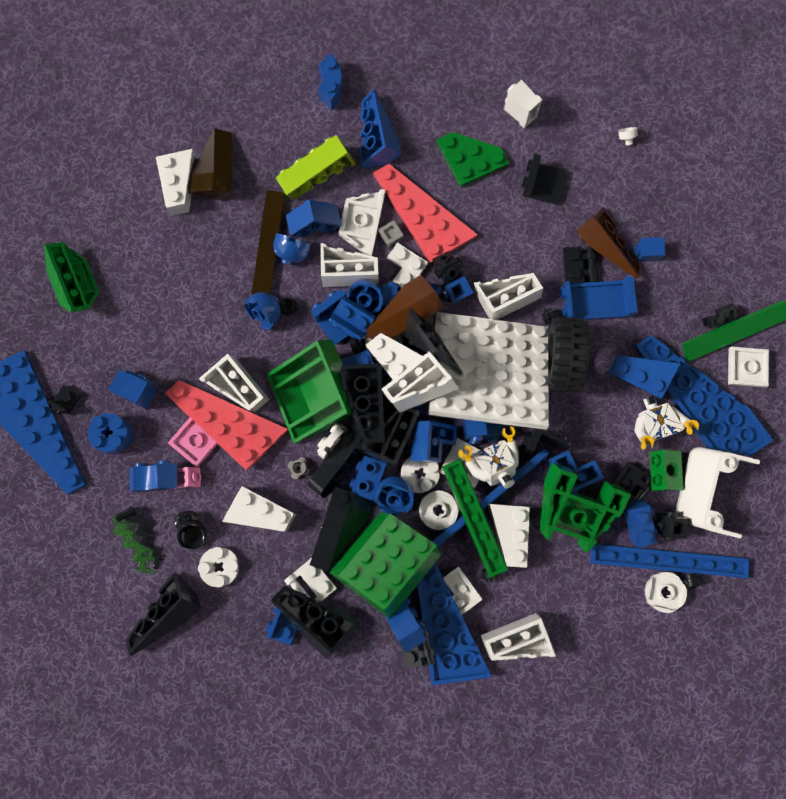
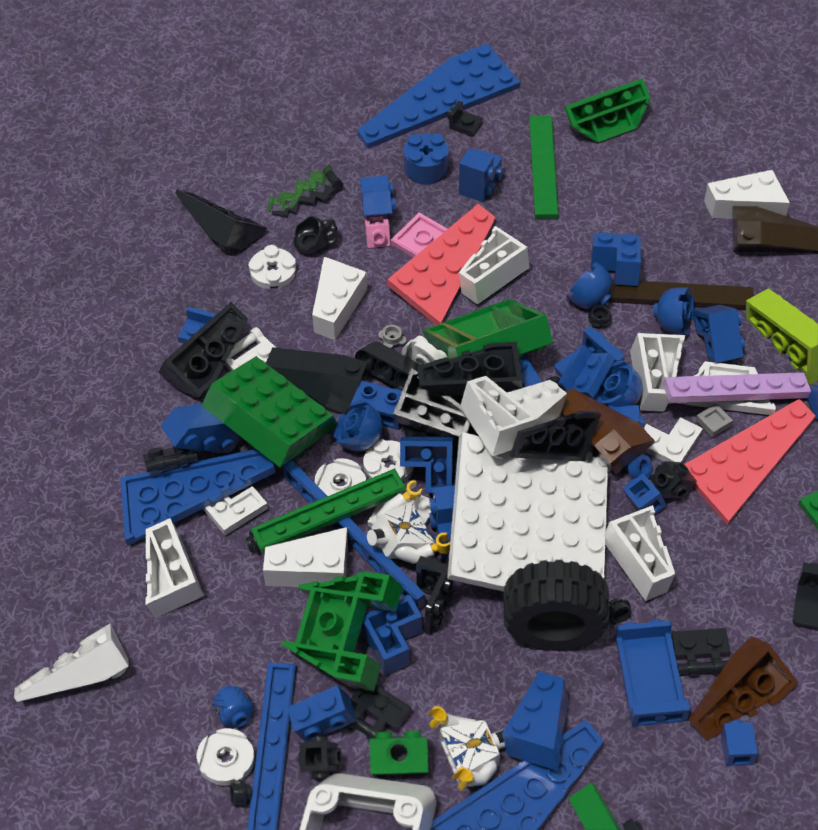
camera: 90 degrees right, 25 degrees down
(123, 338) = (543, 168): none -> green tile
(230, 283) = (618, 254): none -> blue brick
(370, 213) = (736, 387): none -> lavender plate
(596, 700) = (95, 661): none -> white wedge
(629, 588) = (232, 706): none -> blue head

